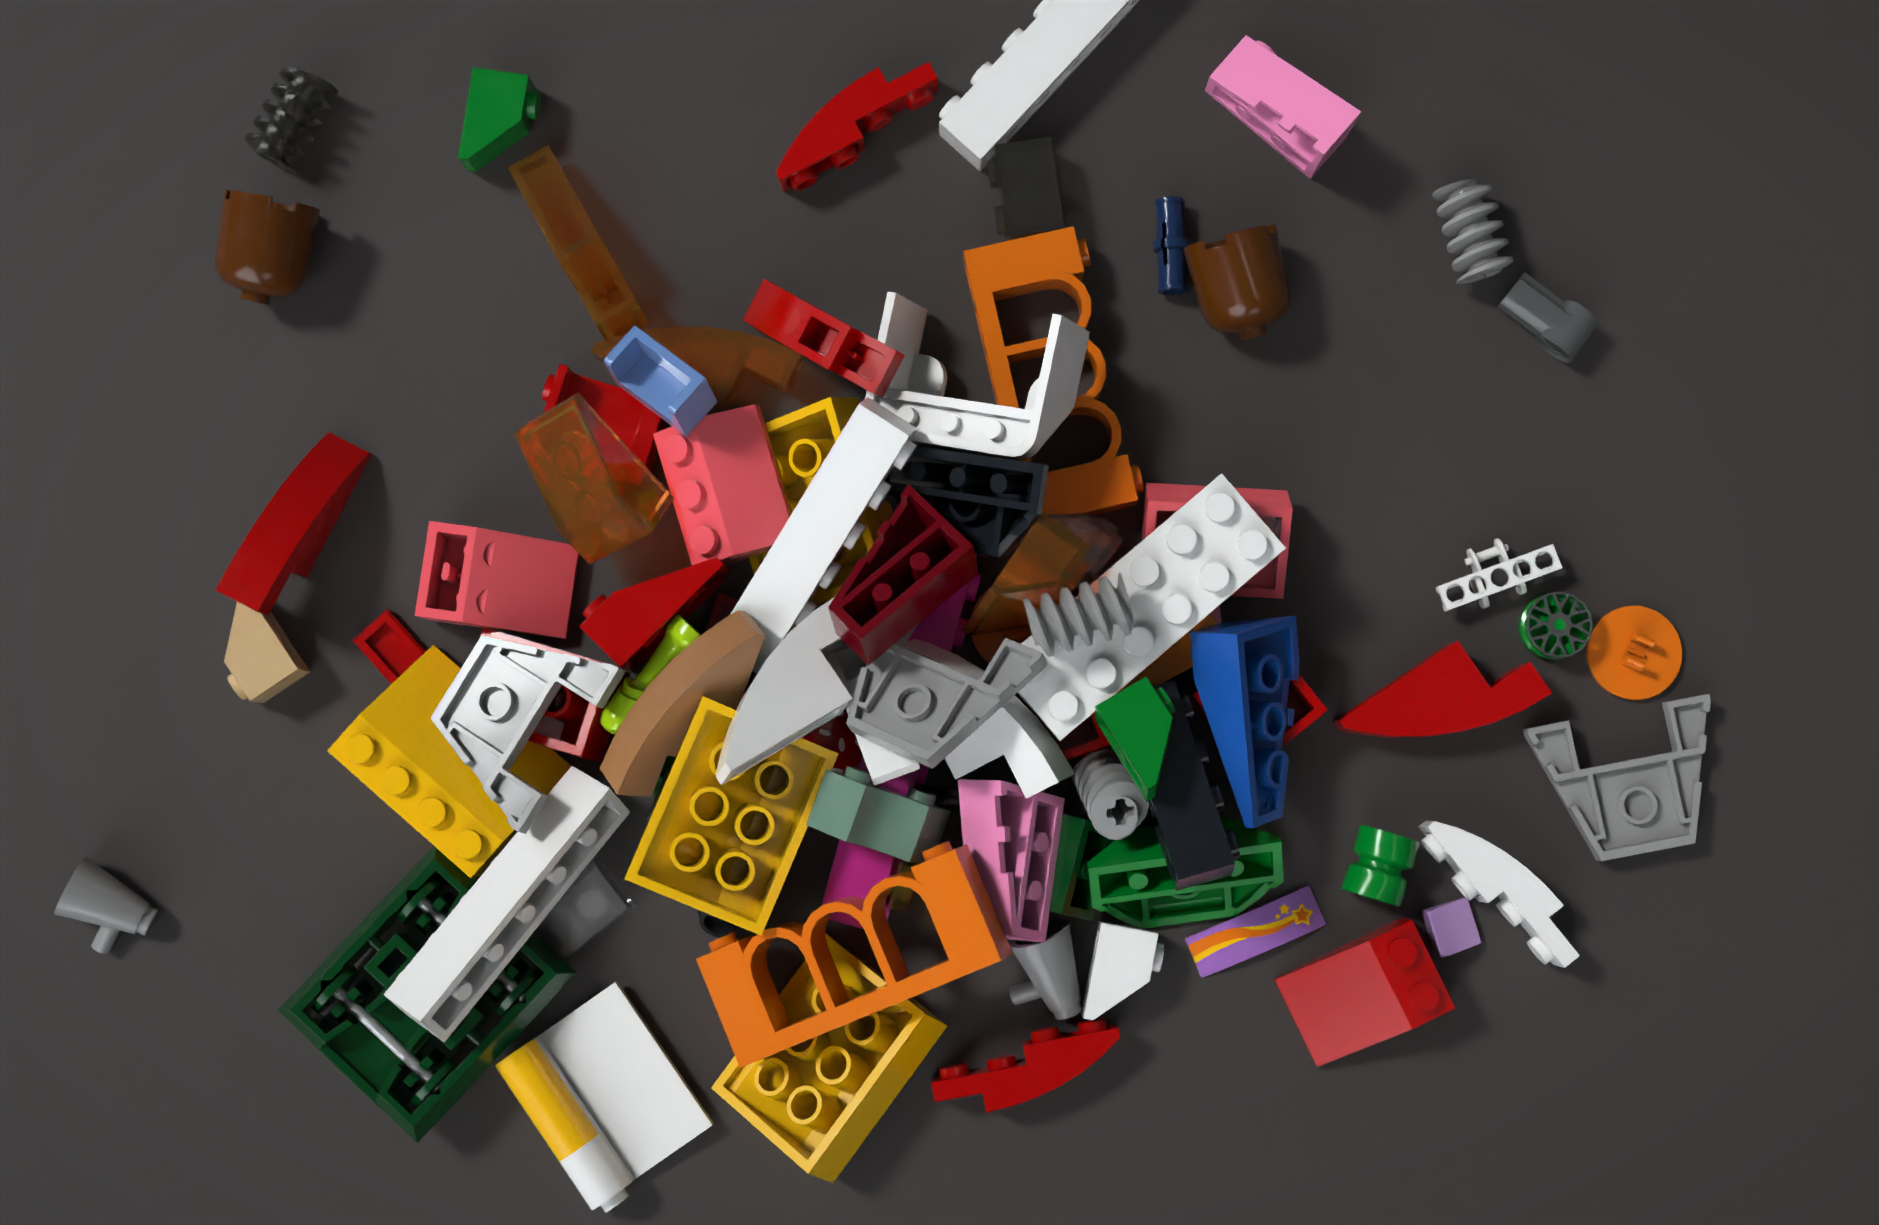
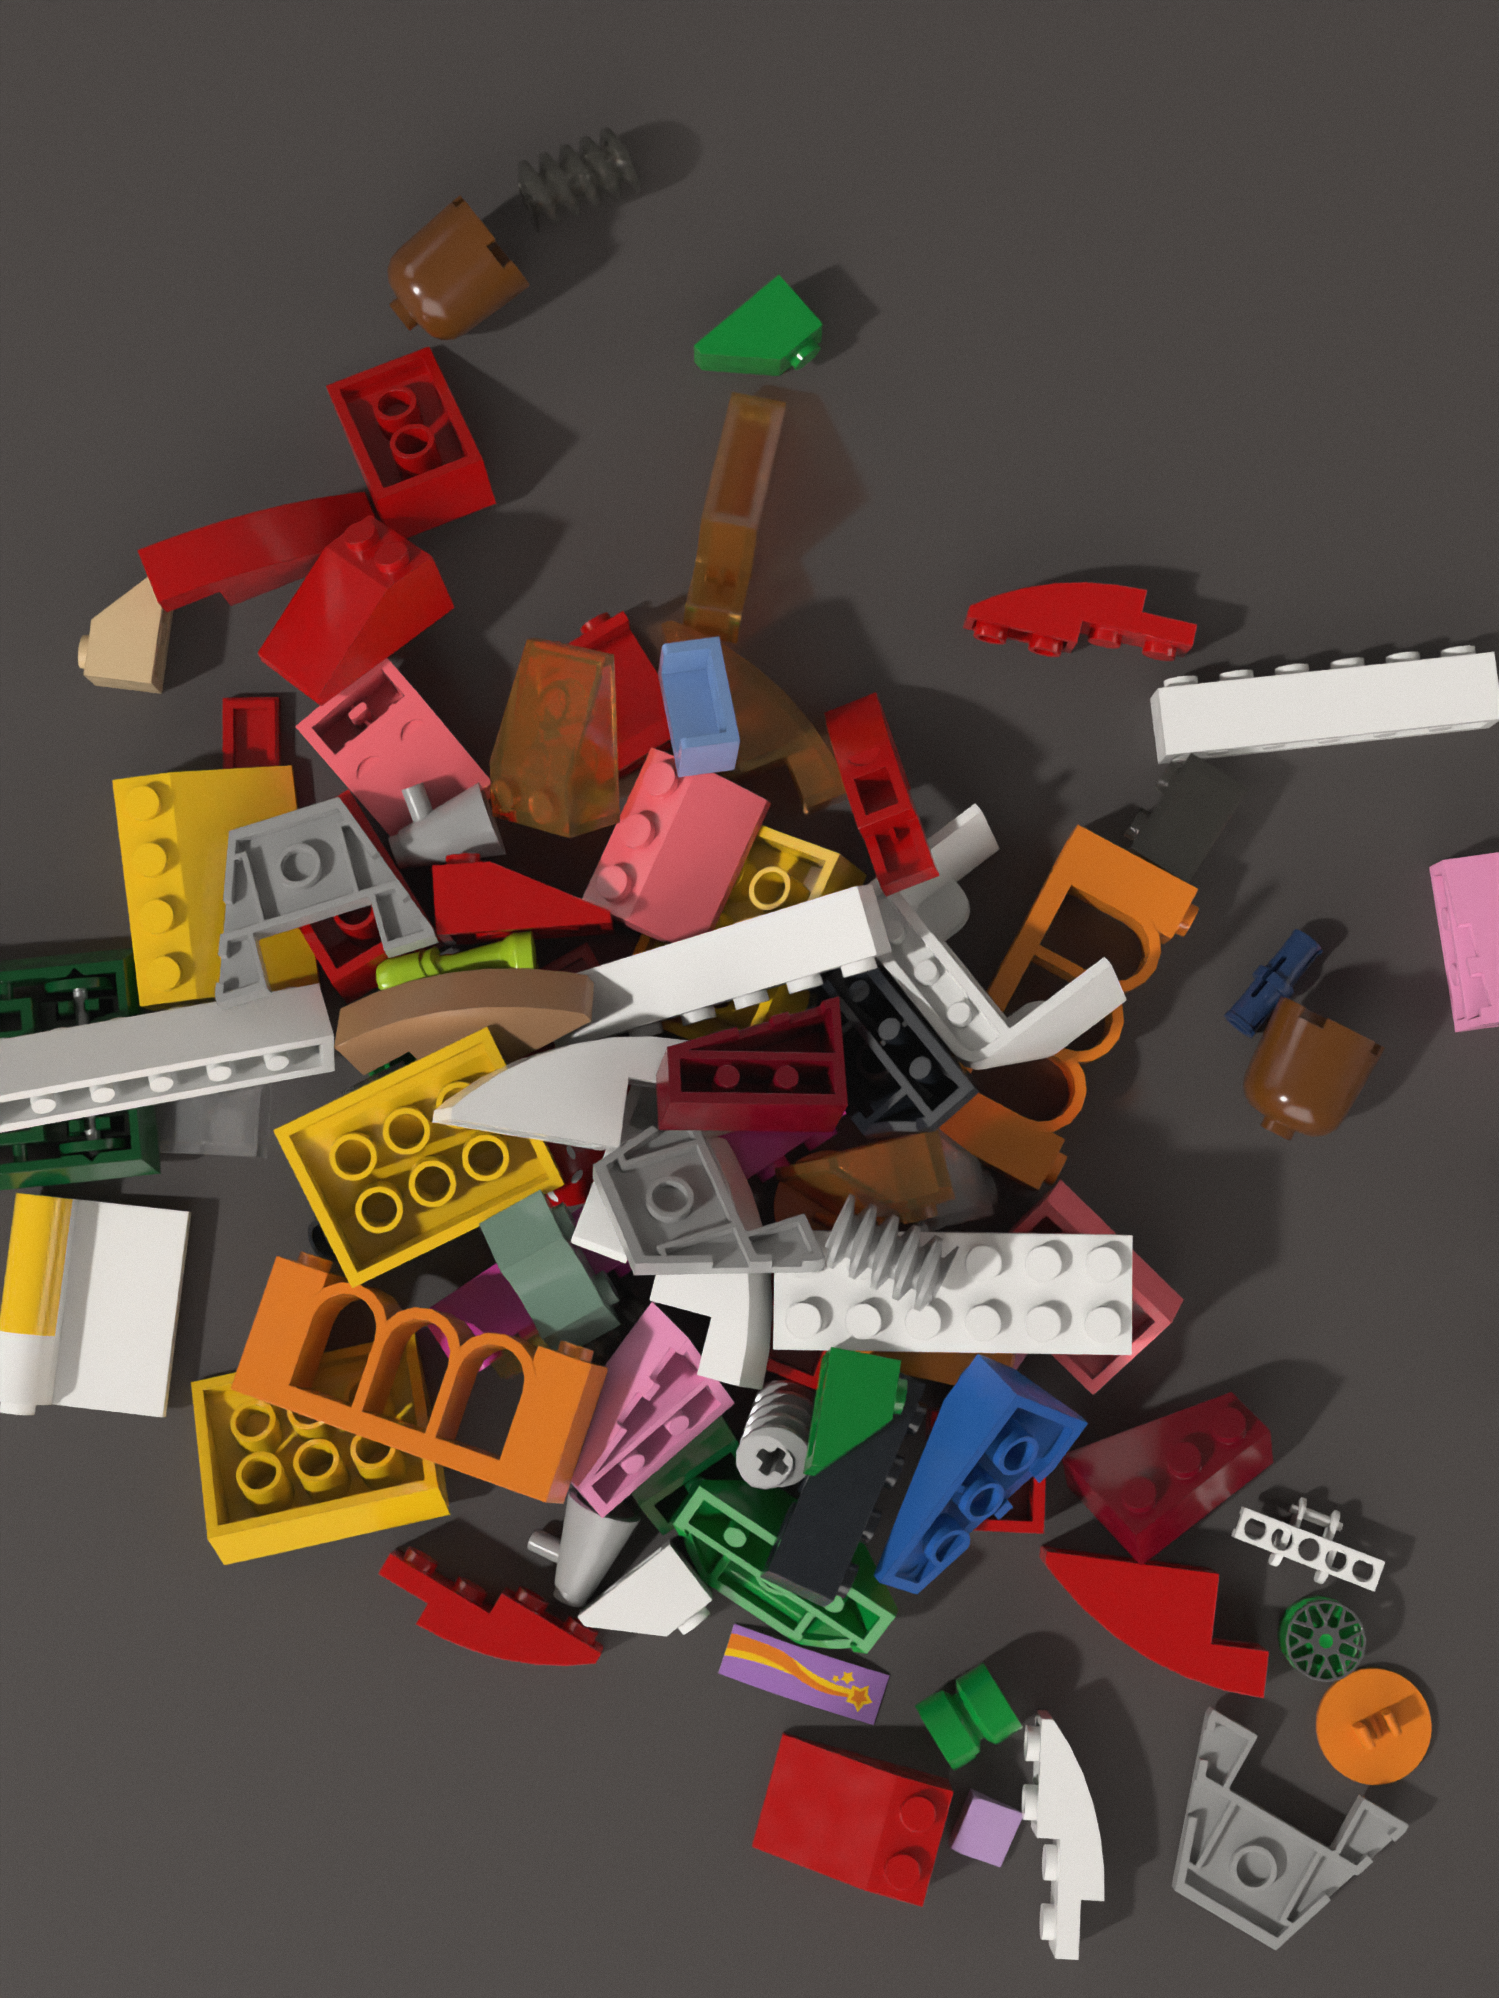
camera: 30 degrees right, 0 degrees up
(332, 375) = (411, 444): none -> red slope
(388, 509) = (355, 610): none -> red slope
(570, 593) = (452, 828): none -> light grey piece
(1372, 605) = (1169, 1472): none -> dark red wedge

